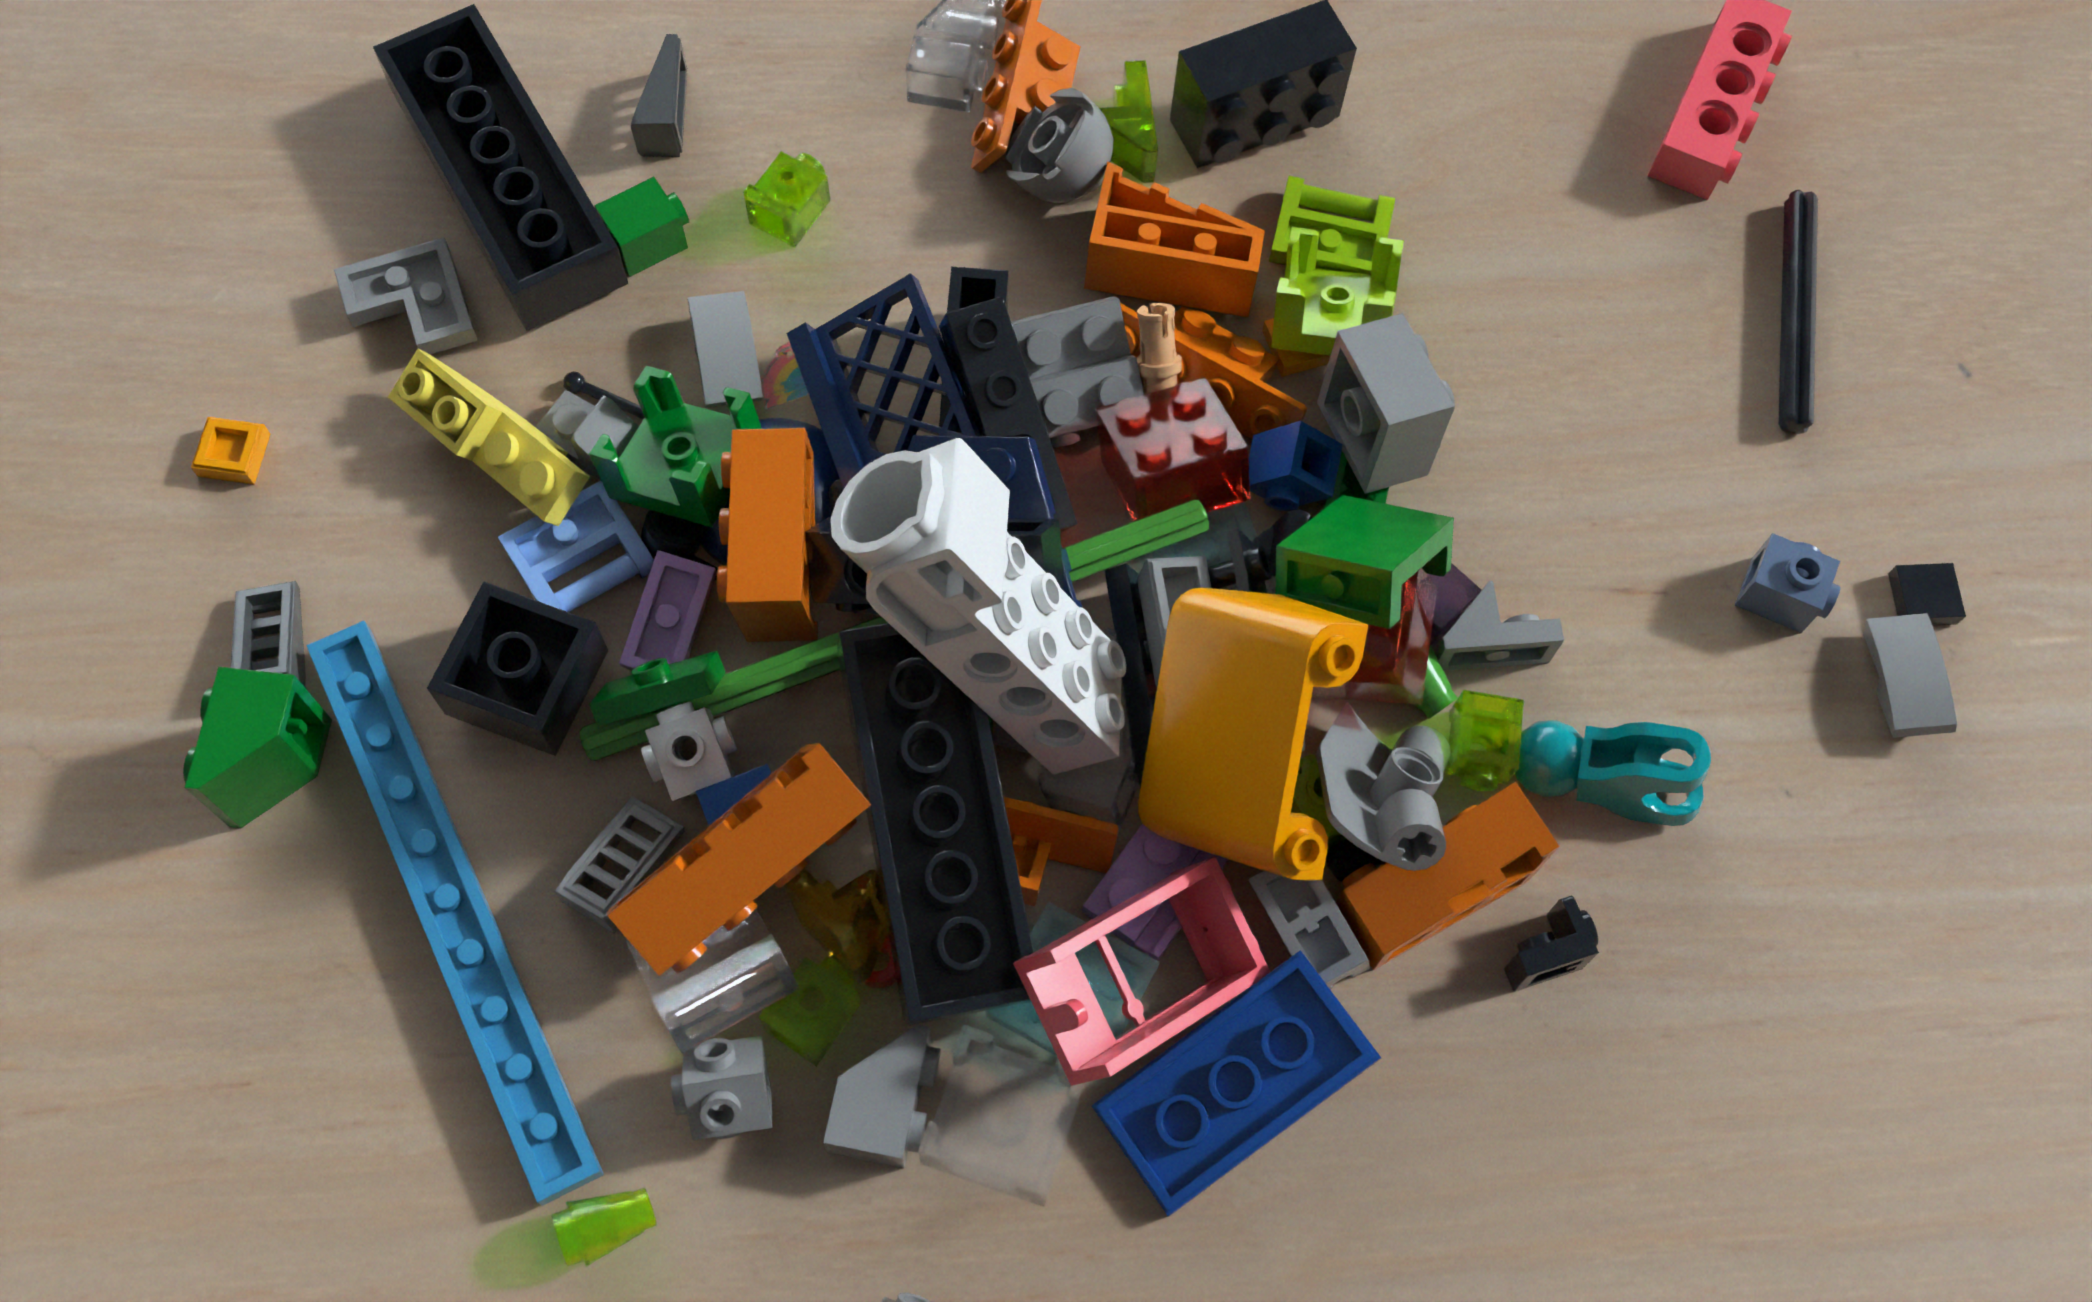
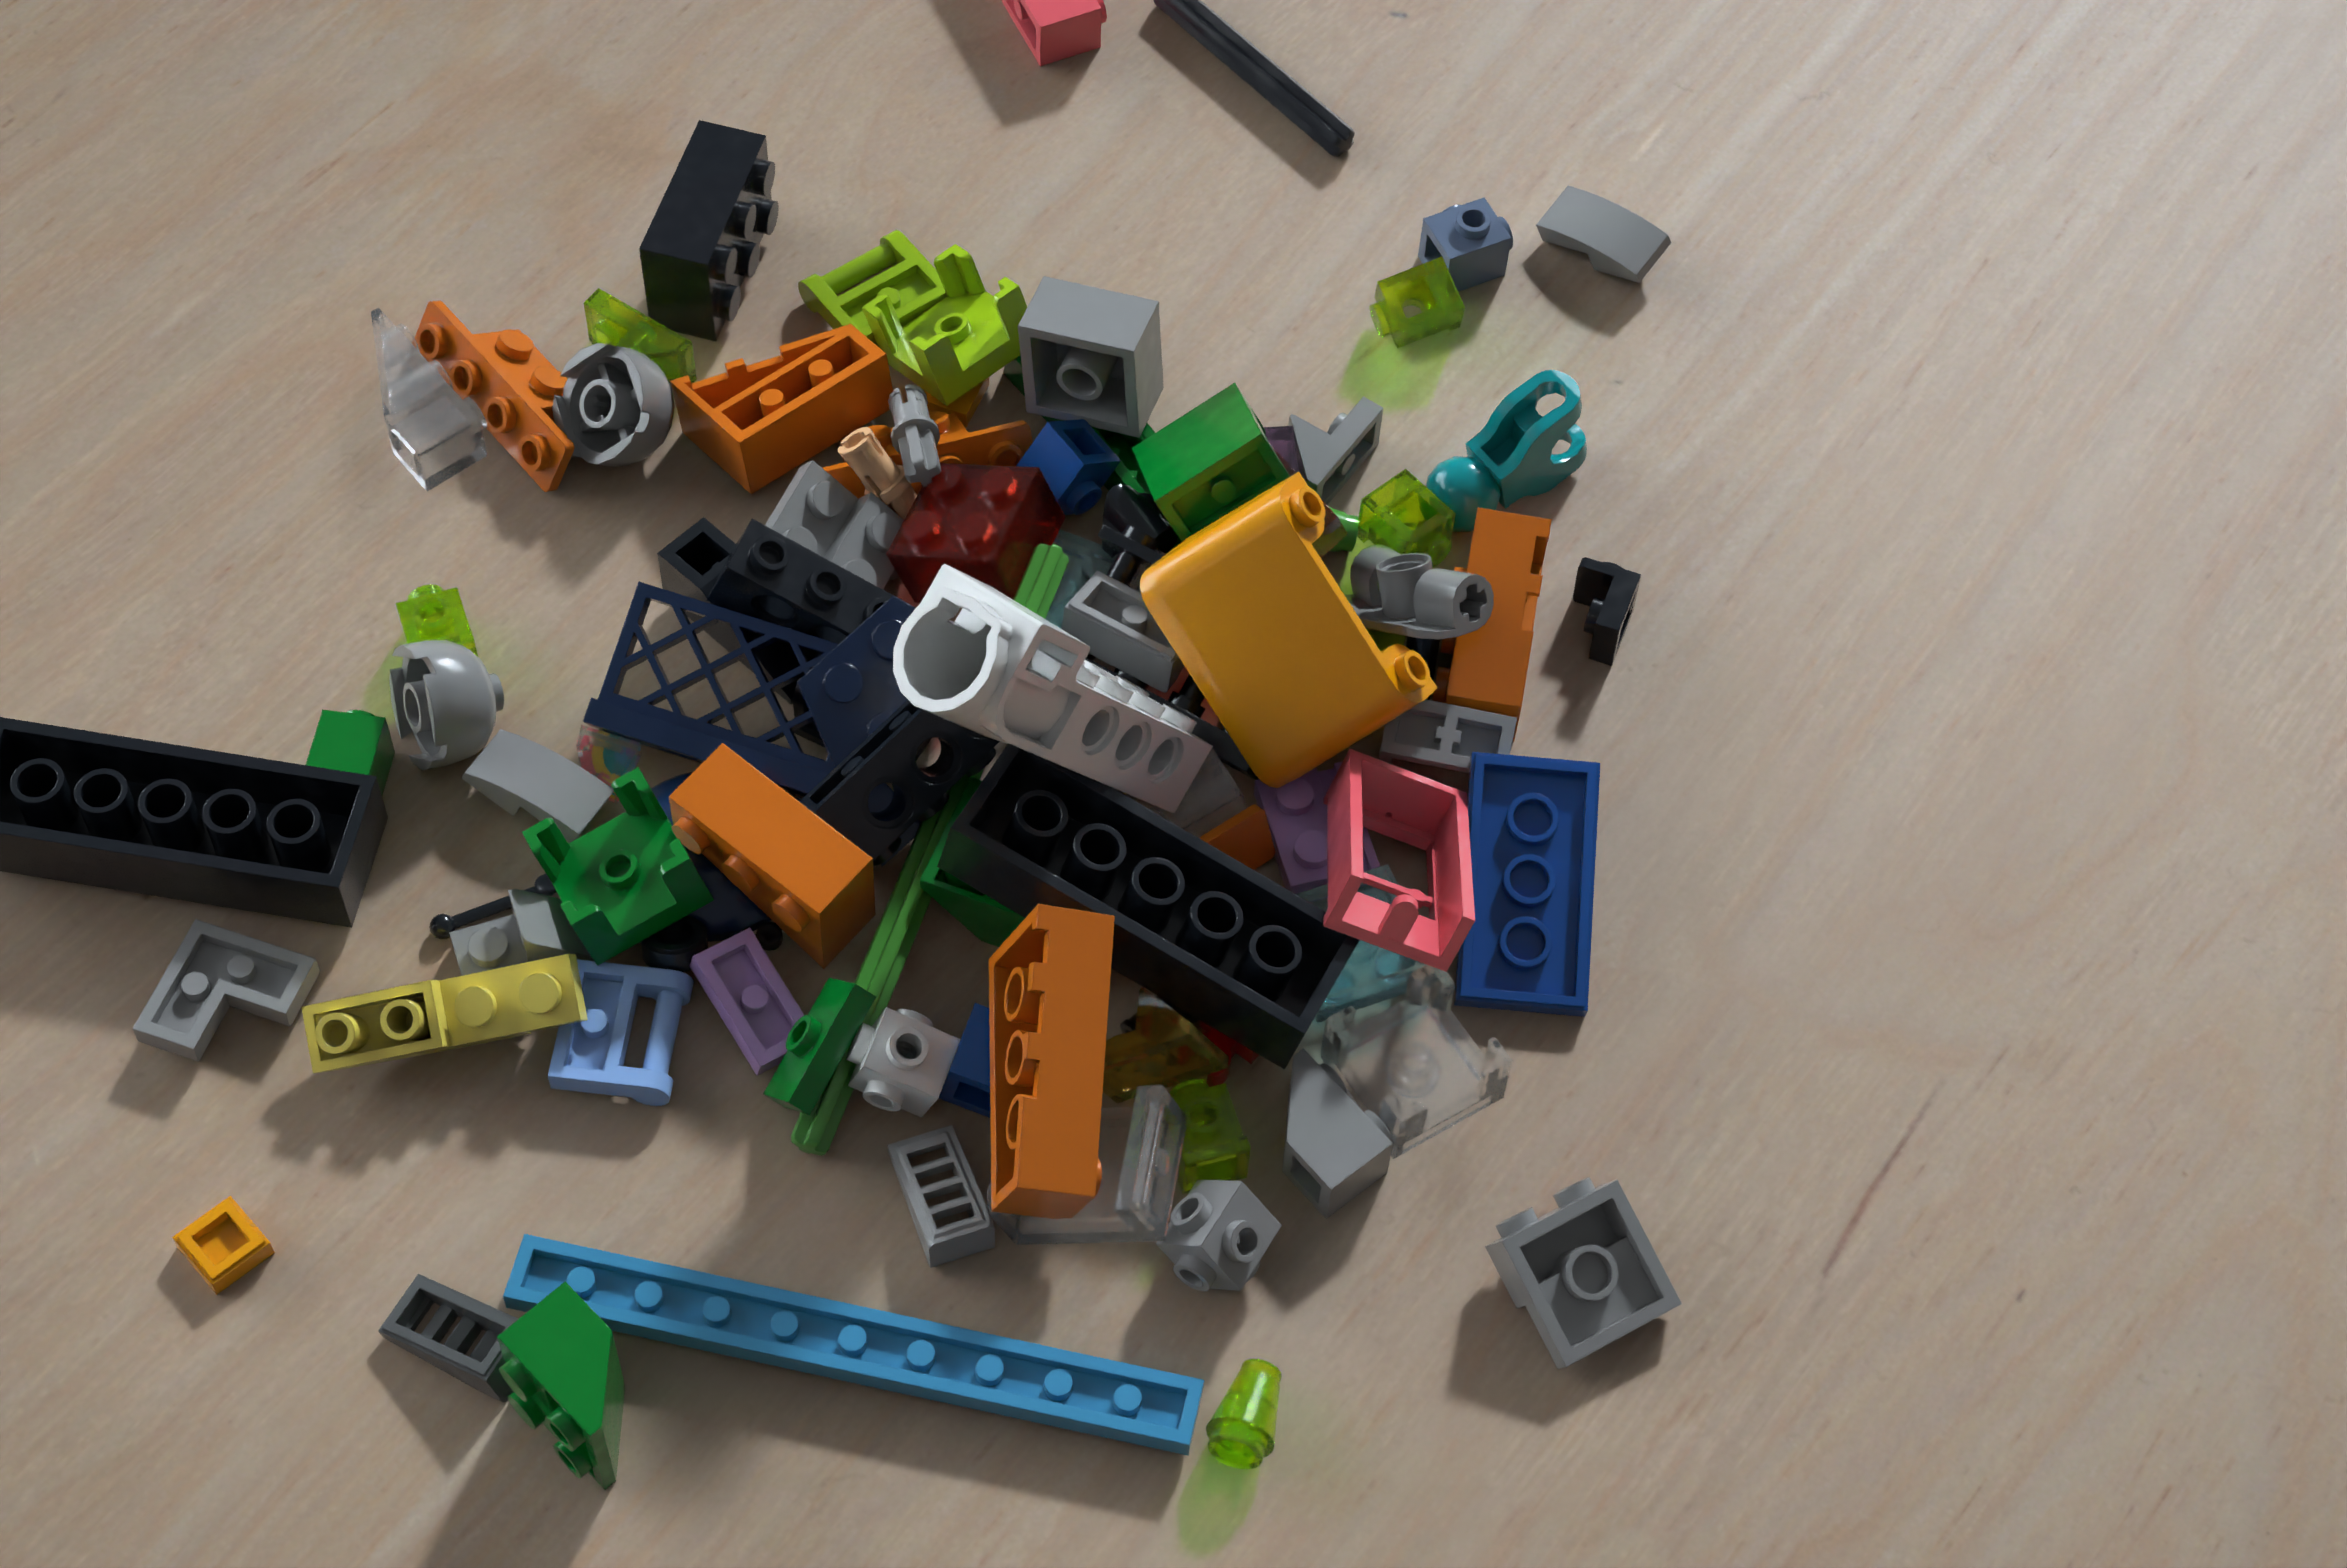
camera: 50 degrees left, 10 degrees down
(518, 668) = (698, 1137): black brick -> none
(661, 108) = (246, 663): dark grey slope -> none
(732, 242) = (444, 701): none -> light grey cylinder
(1210, 345) = (915, 435): none -> light grey axle
(1717, 582) = (1423, 286): none -> clear neon green brick
(1928, 590) = (1548, 174): black tile -> none

